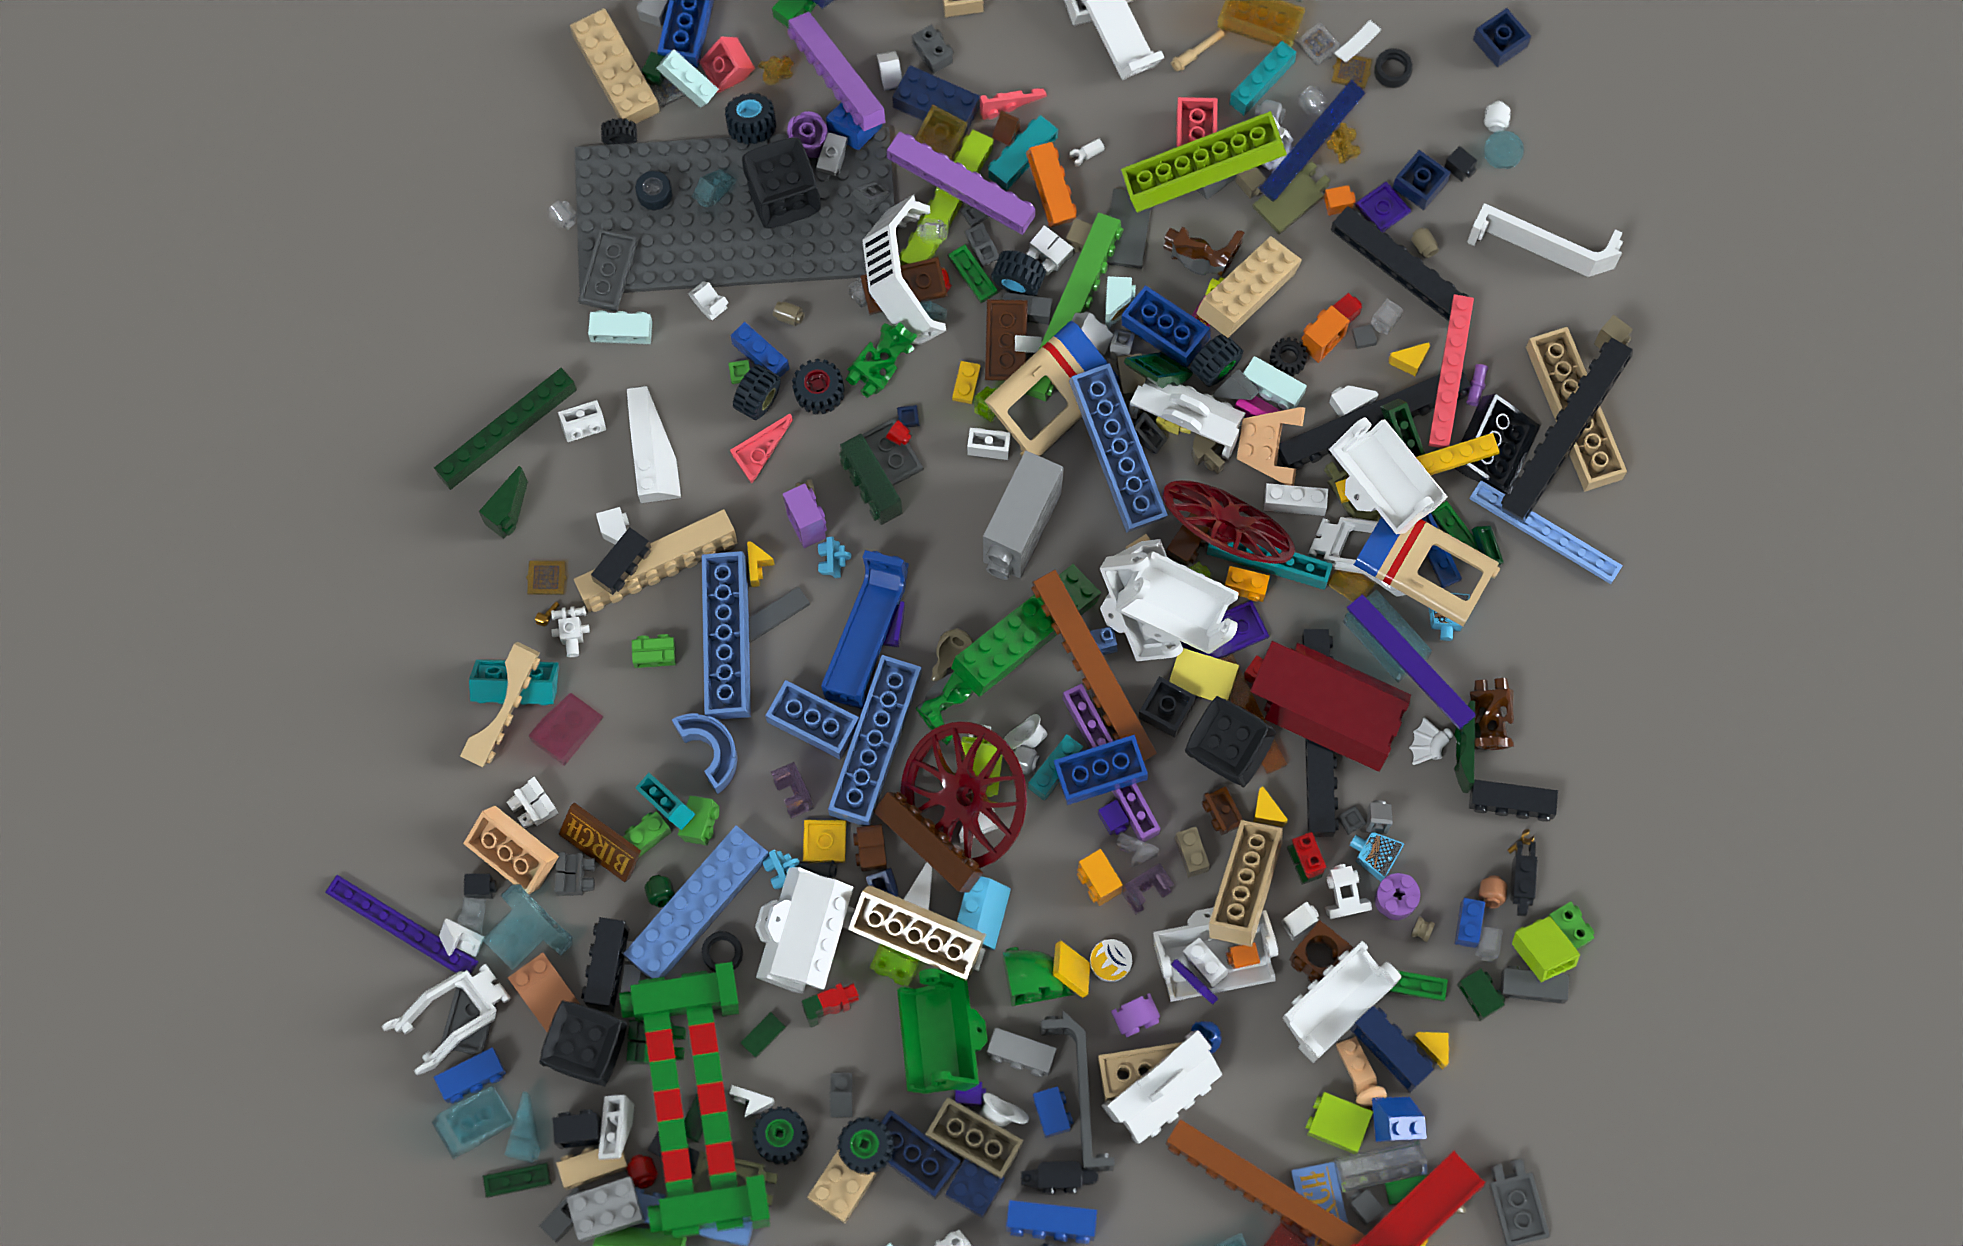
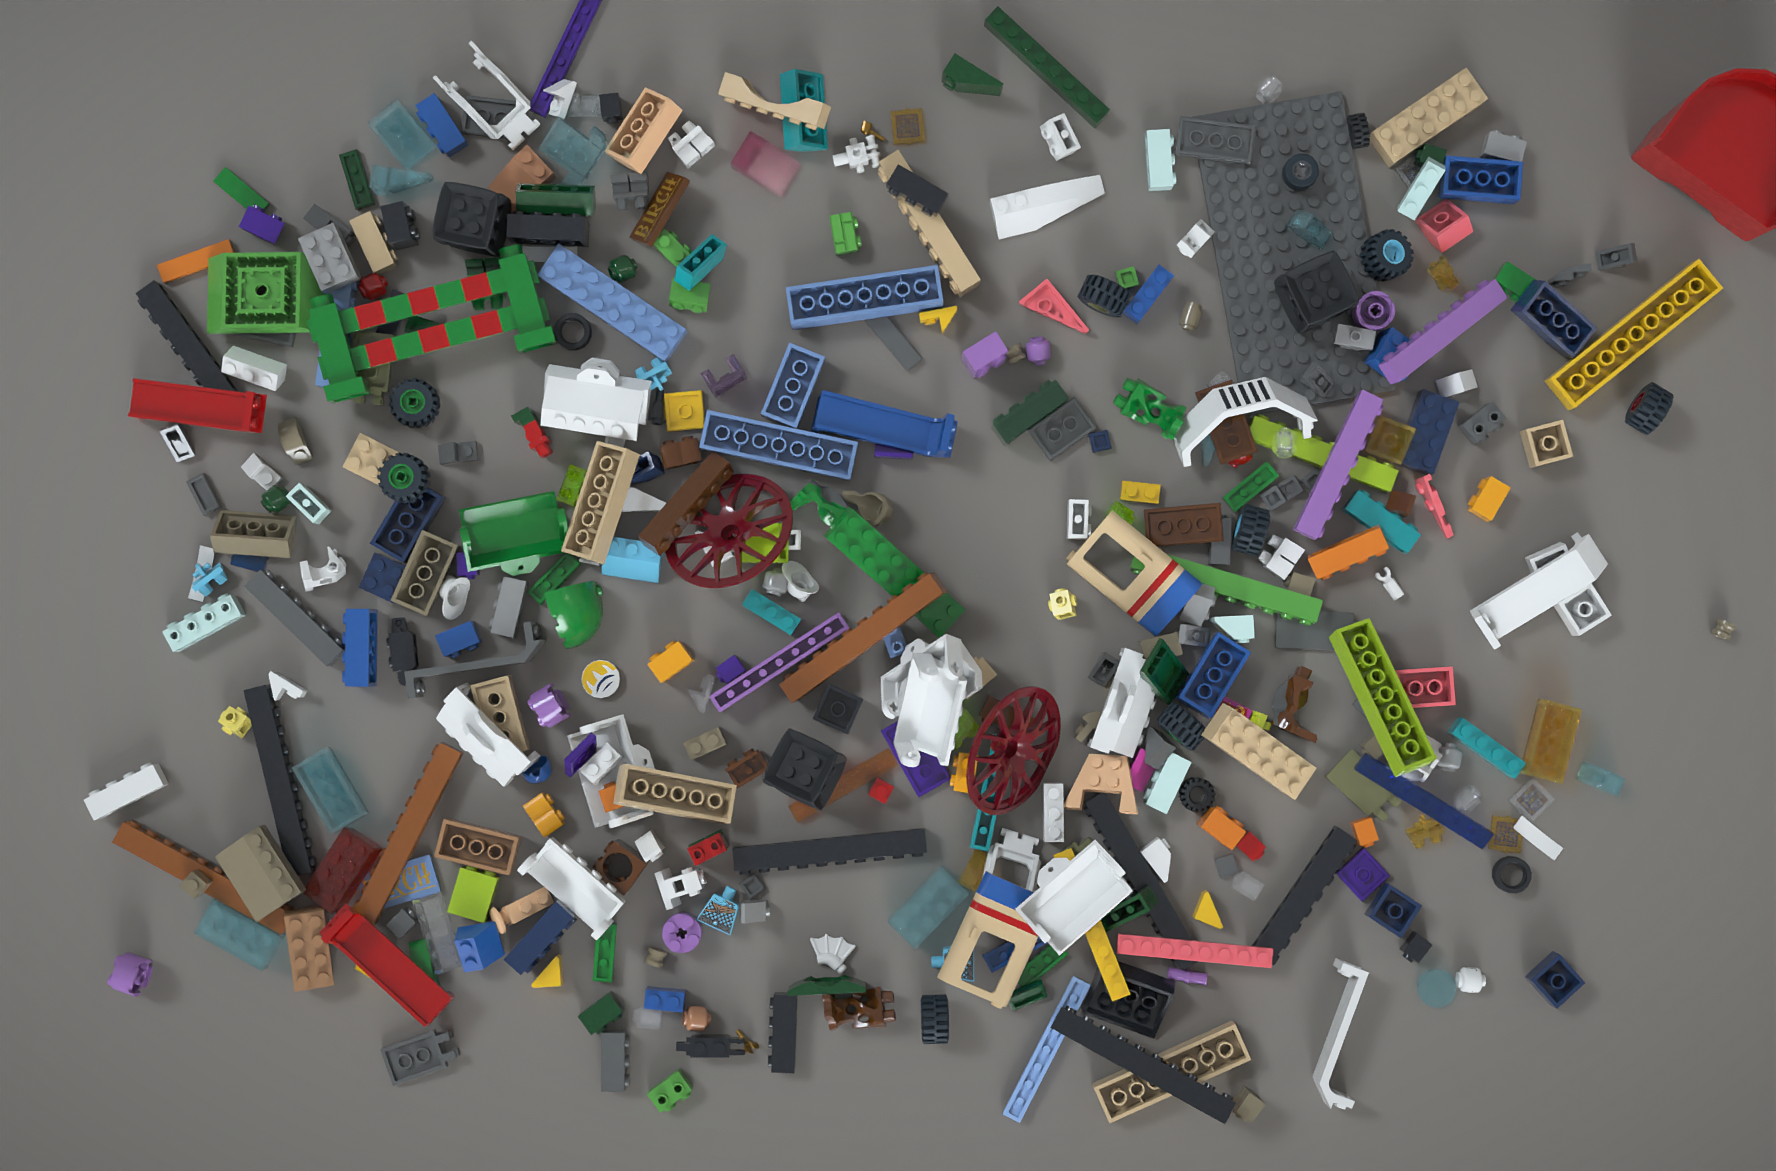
camera: 80 degrees right, 15 degrees up
(573, 951) = (555, 199): none -> dark green brick
(612, 524) = (961, 181): white slope -> none
(615, 1126) = (404, 257): white slope -> none
(714, 733) = (762, 306): medium blue brick -> none
(756, 1101) = (443, 378): white slope -> none
(763, 1035) = (504, 377): dark green tile -> none
(805, 466) = (1038, 350): none -> medium lavender head
(818, 386) = (1118, 353): black wheel -> none
(835, 555) = (952, 389): medium azure hips -> none
(899, 434) = (1077, 434): red hat -> none
(993, 1001) = (554, 577): none -> green tile
(1010, 51) = (1488, 498): none -> light orange brick
(1022, 516) = (1001, 556): light grey brick -> none
(1027, 343) = (1181, 546): white sticker -> none
(1071, 969) = (584, 644): yellow tile -> none
(1082, 464) = (1062, 604): none -> light yellow brick
(1100, 769) = (764, 653): blue brick -> none
(1118, 448) = (1083, 640): medium blue brick -> none
(1154, 876) = (669, 702): clear purple panel -> none
(1191, 54) = (1504, 675): tan pin -> none
(1204, 675) = (871, 740): light yellow tile -> none
(1255, 1036) = (544, 814): none -> light orange brick
(1267, 810) = (751, 807): yellow slope -> none
(1286, 1111) = (478, 846): none -> medium nougat brick
(1330, 703) = (854, 859): dark red panel -> none
(1411, 661) = (897, 930): dark purple tile -> none
(1425, 242) = (1328, 917): dark tan brick -> none
(1508, 637) = (934, 1019): none -> black wheel
(1545, 948) = (645, 1068): lime brick -> none

